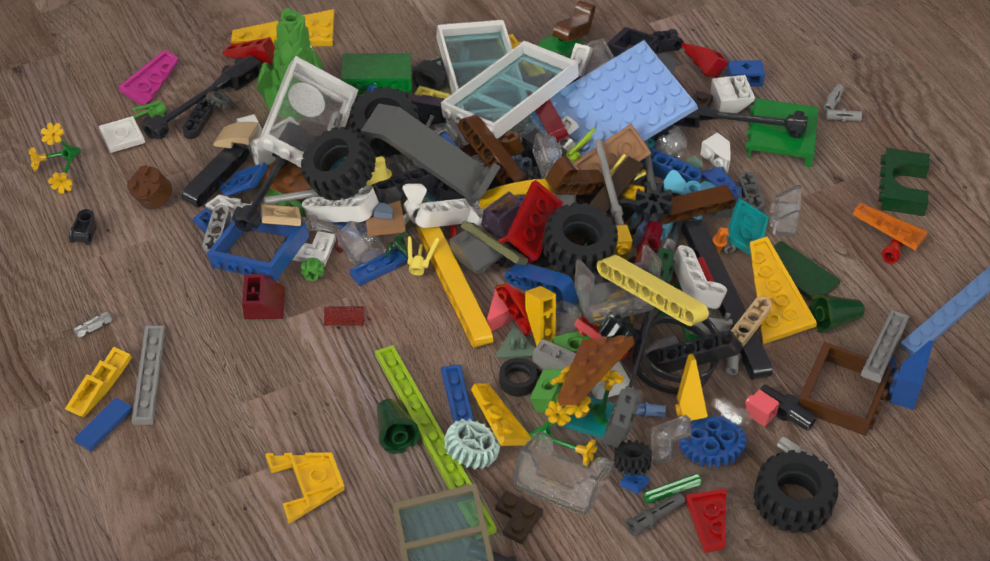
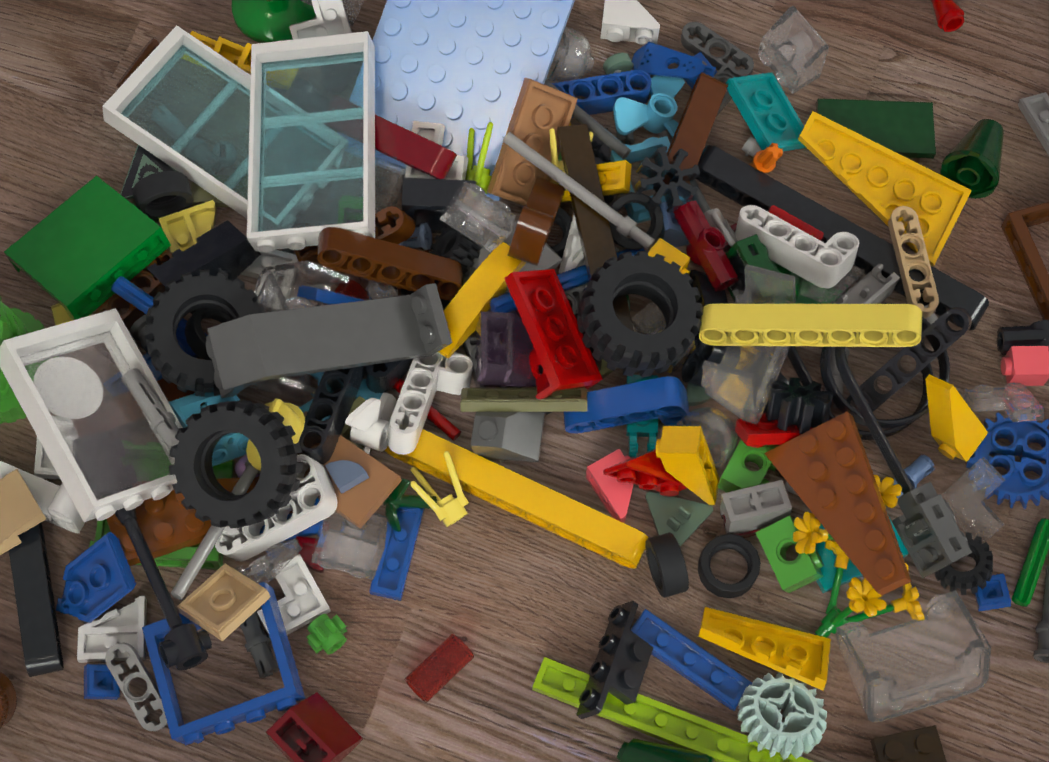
camera: 45 degrees left, 20 degrees up
(422, 370) = (618, 665): none -> black bracket
(487, 350) = (667, 565): none -> black tyre

